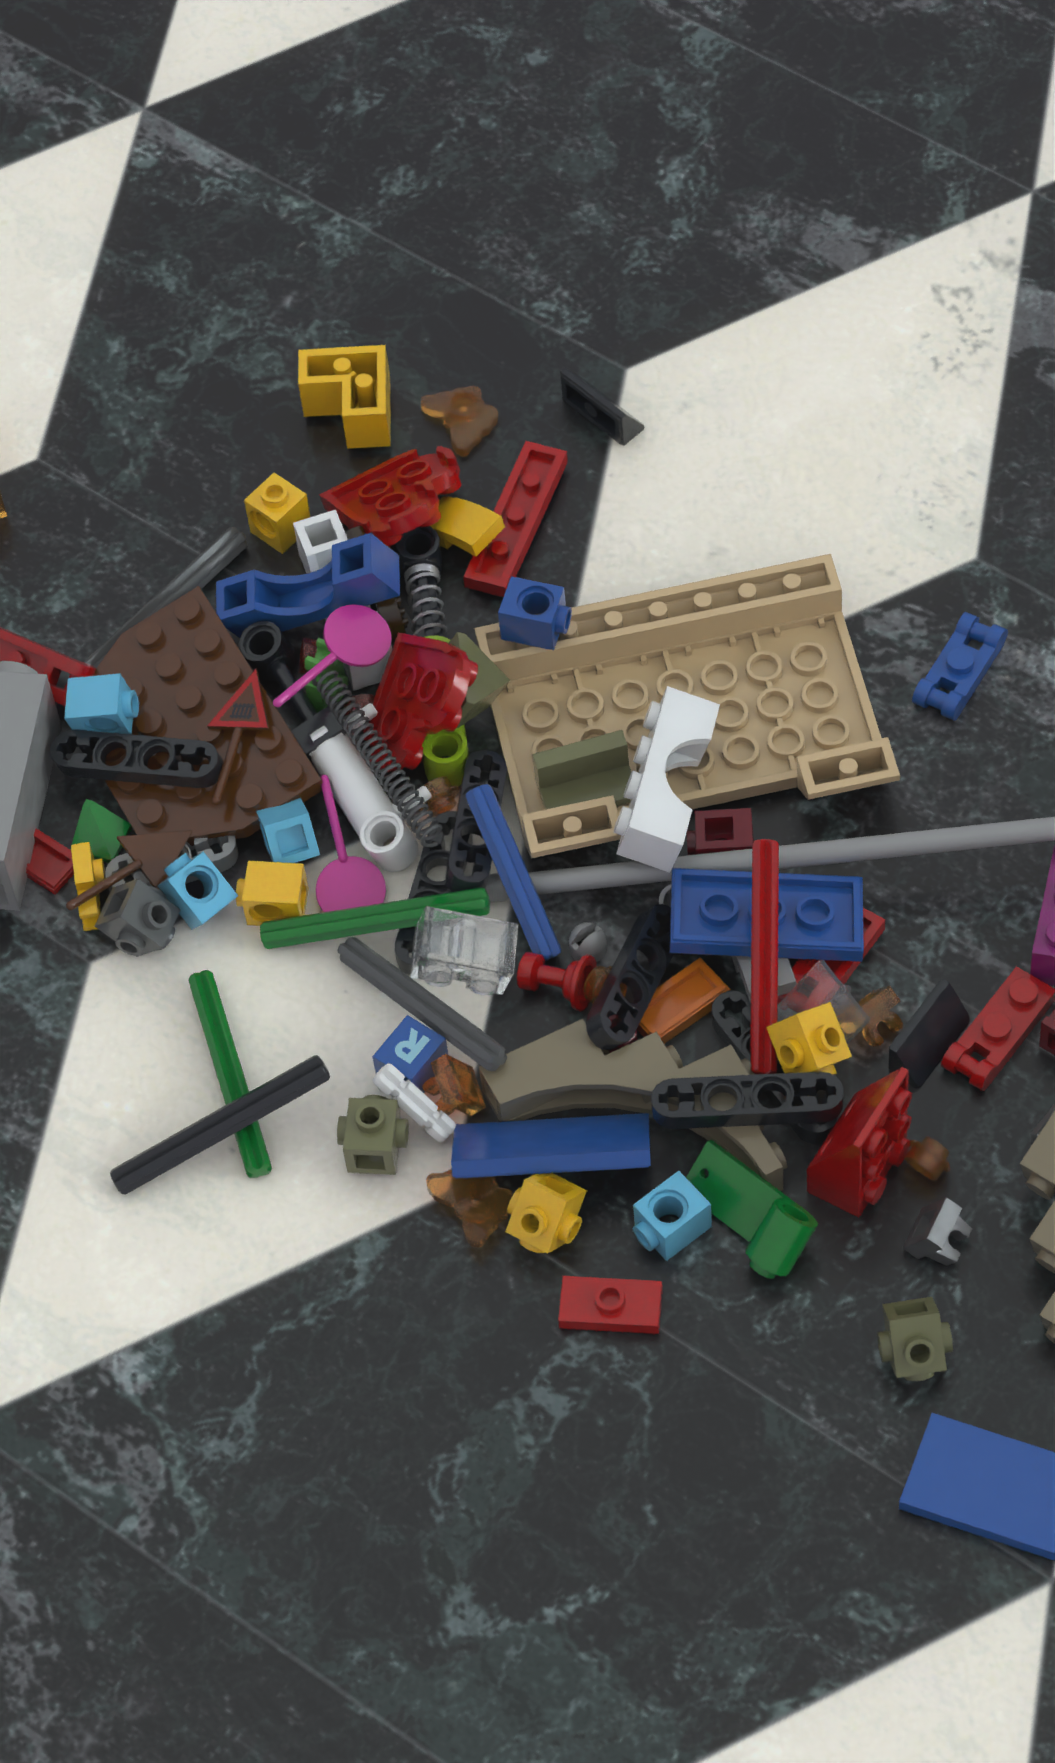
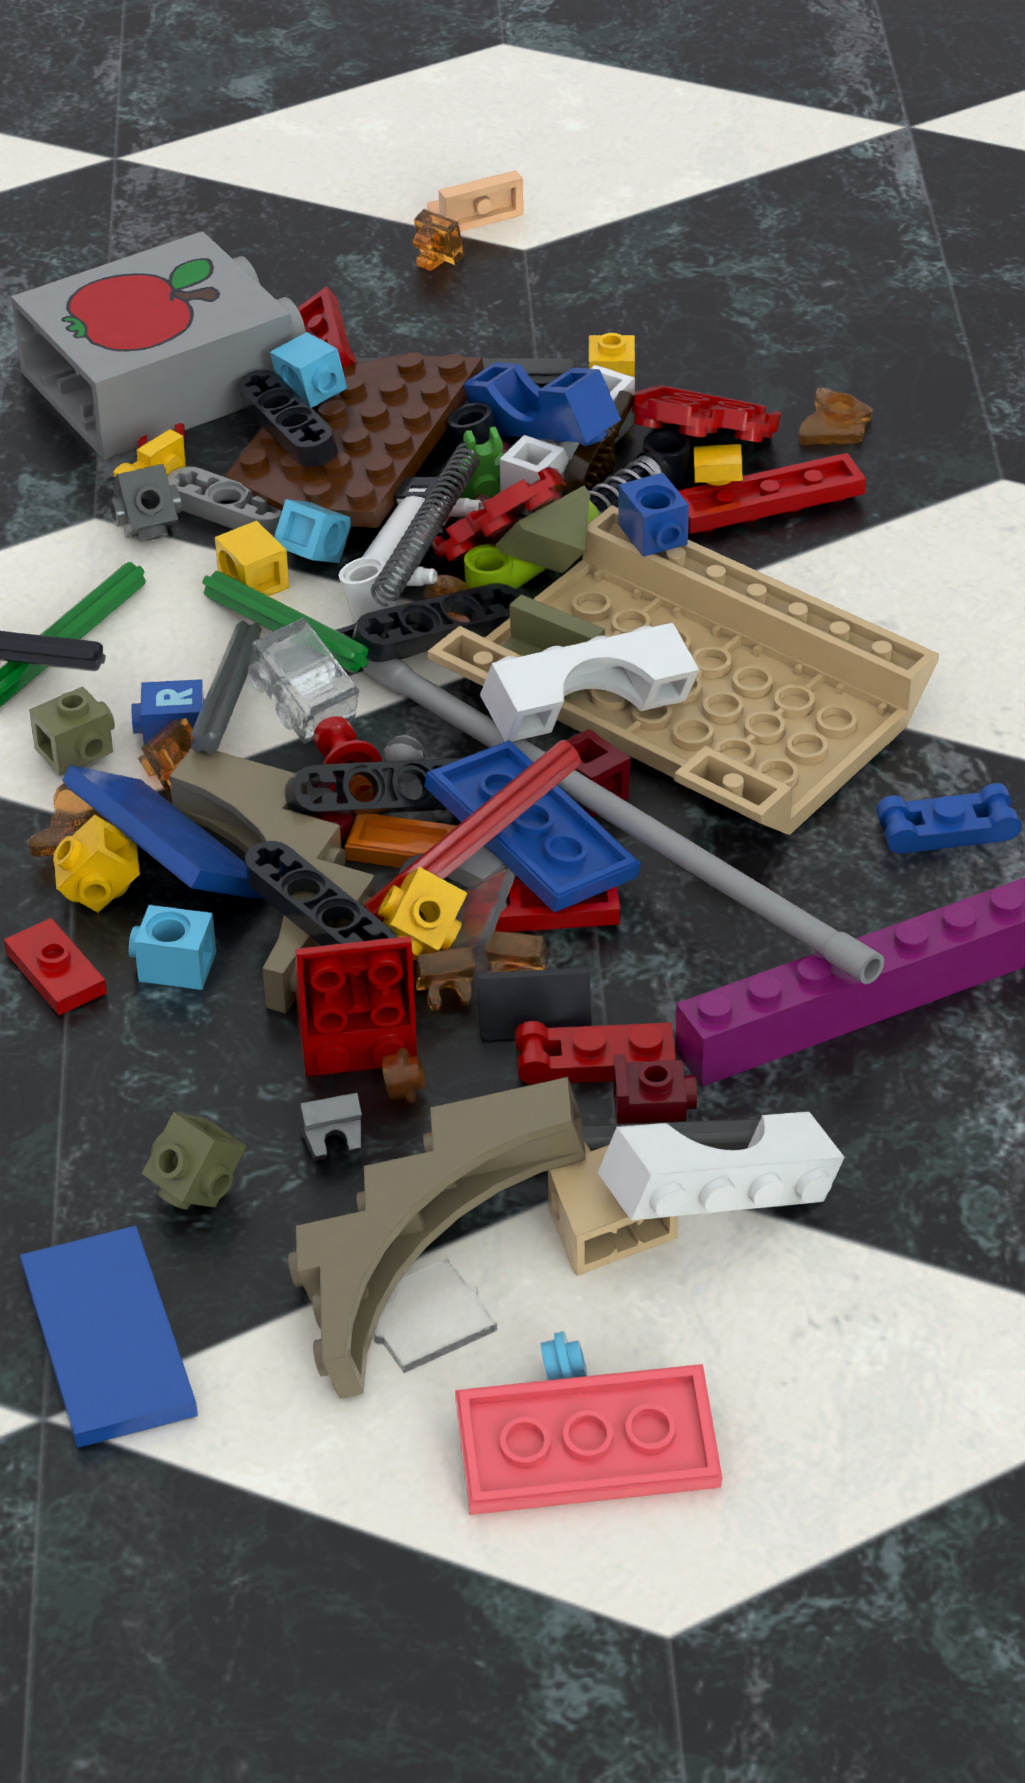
camera: 45 degrees right, 15 degrees down
(101, 830) = (214, 450): green slope -> none
(149, 853) = (210, 478): reddish brown piece -> none
(216, 889) = (200, 534): medium azure brick -> none
(242, 712) = (379, 437): piece -> none
(349, 879) = (318, 594): dark pink piece -> none
(352, 385) = (770, 340): yellow brick -> none
(353, 637) = (513, 443): dark pink piece -> none
(414, 1102) = (125, 730): white axle -> none
(513, 872) = (405, 658): blue axle -> none
(599, 408) = (941, 478): black slope -> none
(754, 1209) = (233, 996): green door -> none
(850, 1070) = (445, 969): none -> clear orange tile

